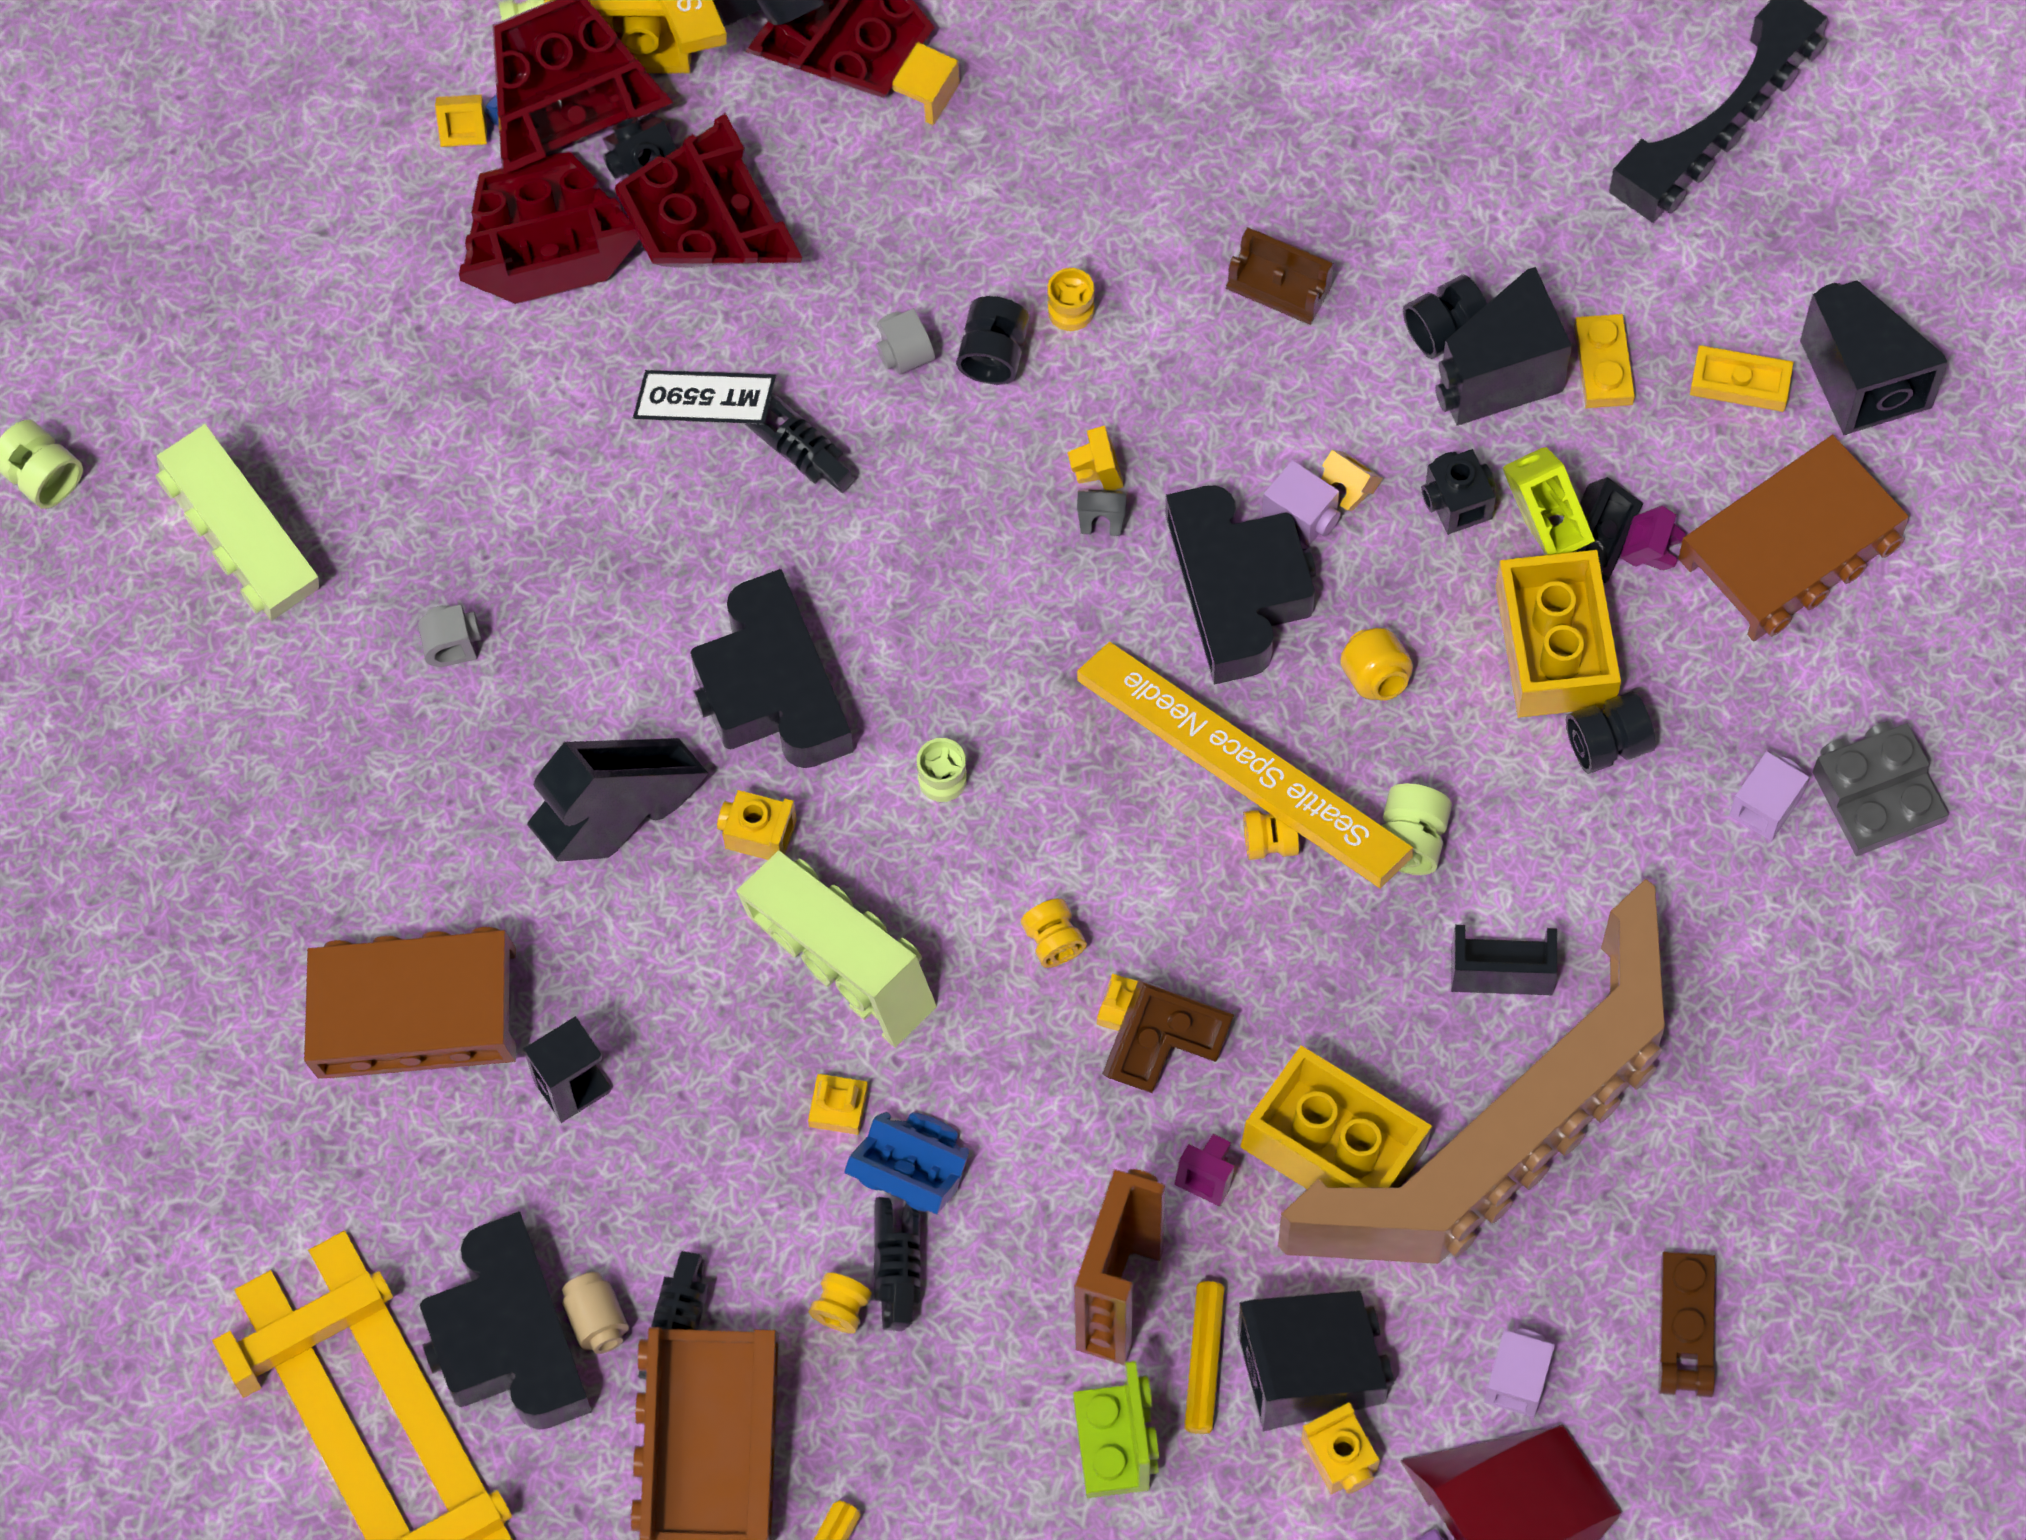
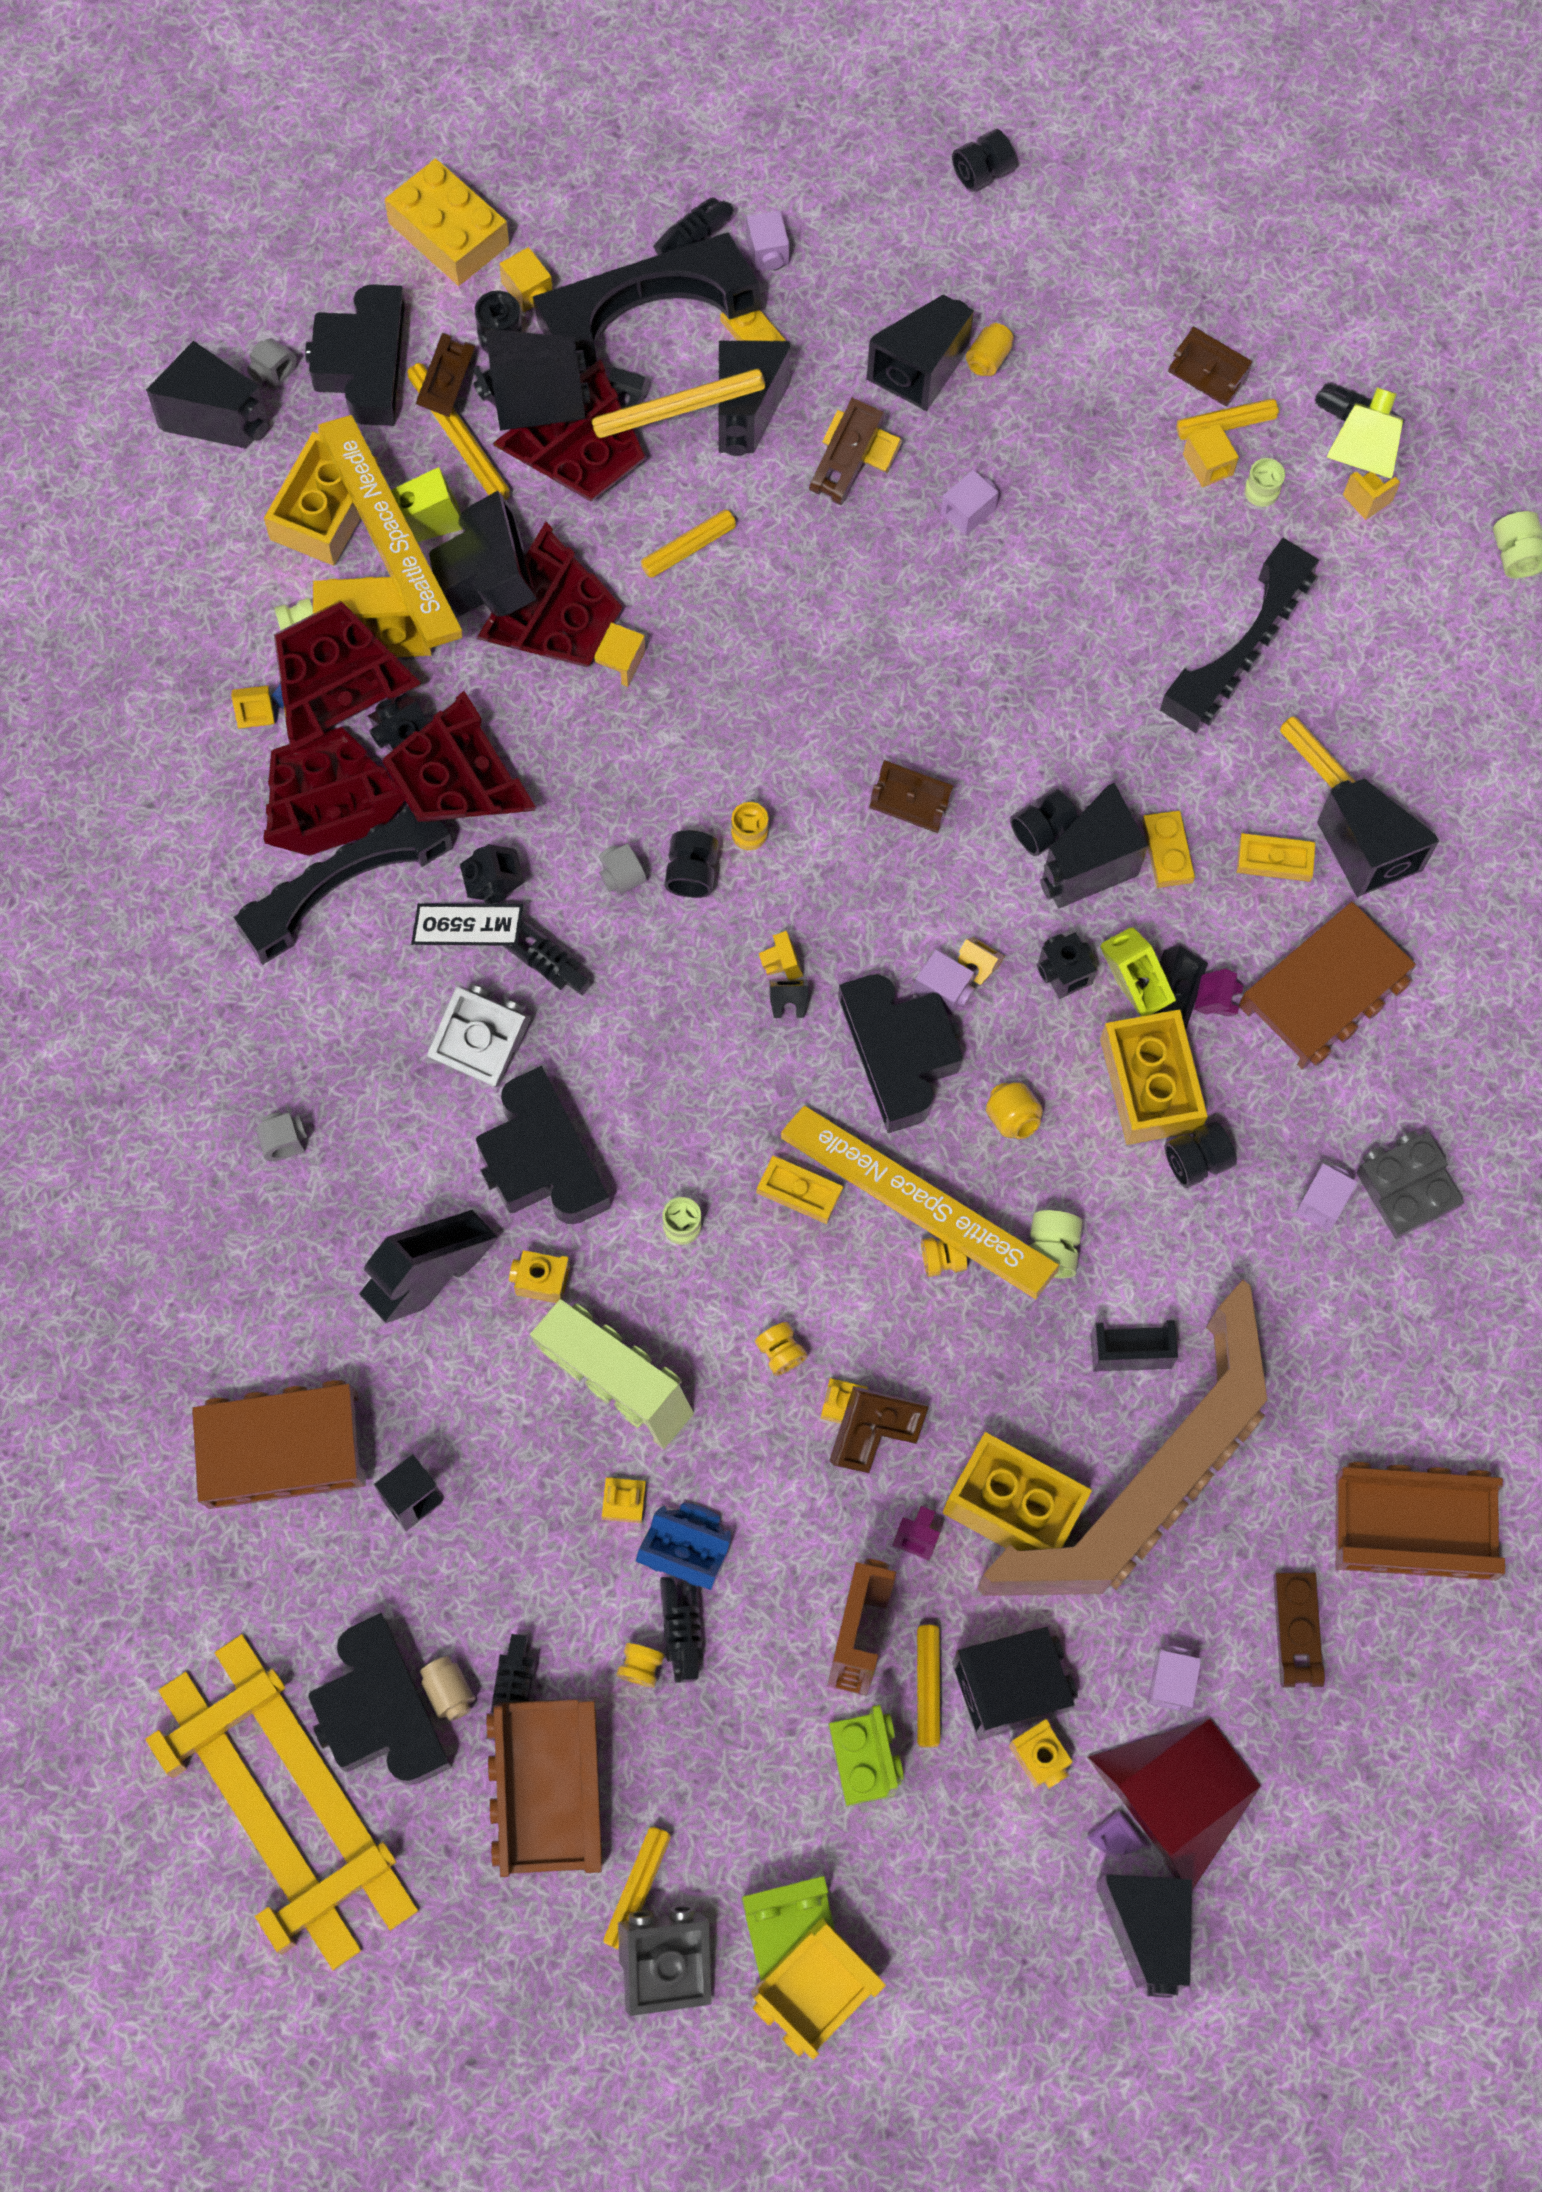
camera: 10 degrees left, 5 degrees up
(235, 523) = (103, 1056): yellowish green wedge -> none
(463, 376) = (273, 920): none -> black arch
(707, 528) = (479, 1033): none -> plate
(740, 335) = (491, 873): none -> black brick
(1094, 743) = (799, 1189): none -> yellow plate
(1799, 249) = (1314, 752): none -> yellow axle
(1854, 1203) = (1418, 1522): none -> dark orange panel

